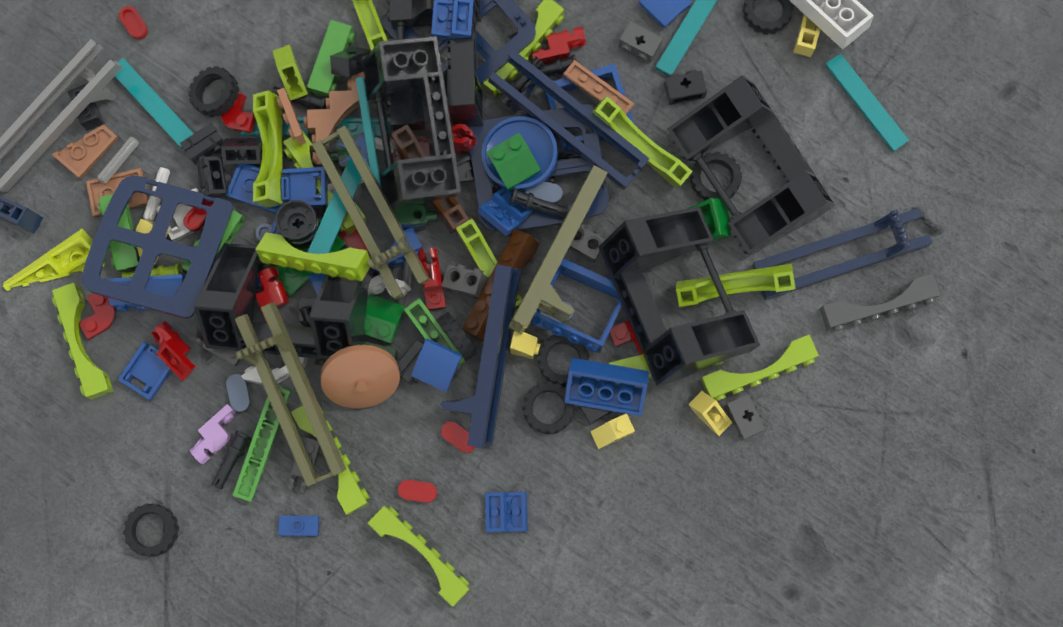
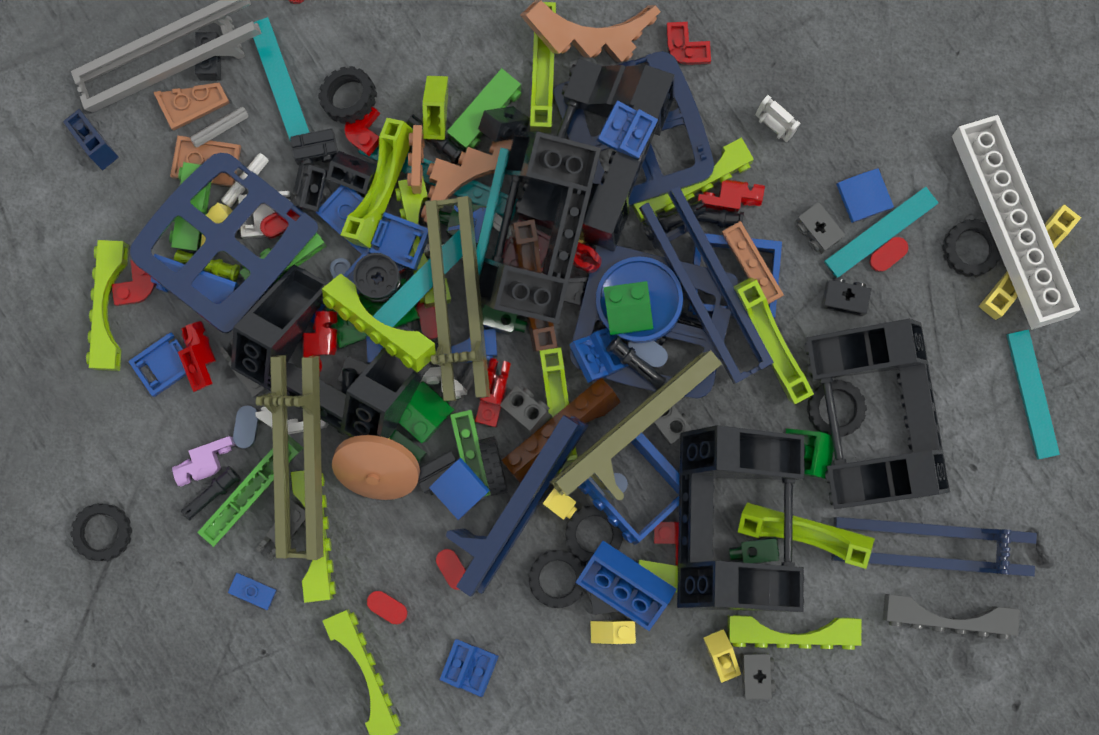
camera: 20 degrees right, 5 degrees up
(57, 263) = (116, 211): neon yellow wedge -> none
(704, 41) = (888, 254): none -> red tile
(706, 309) = (766, 551): none -> dark green torso

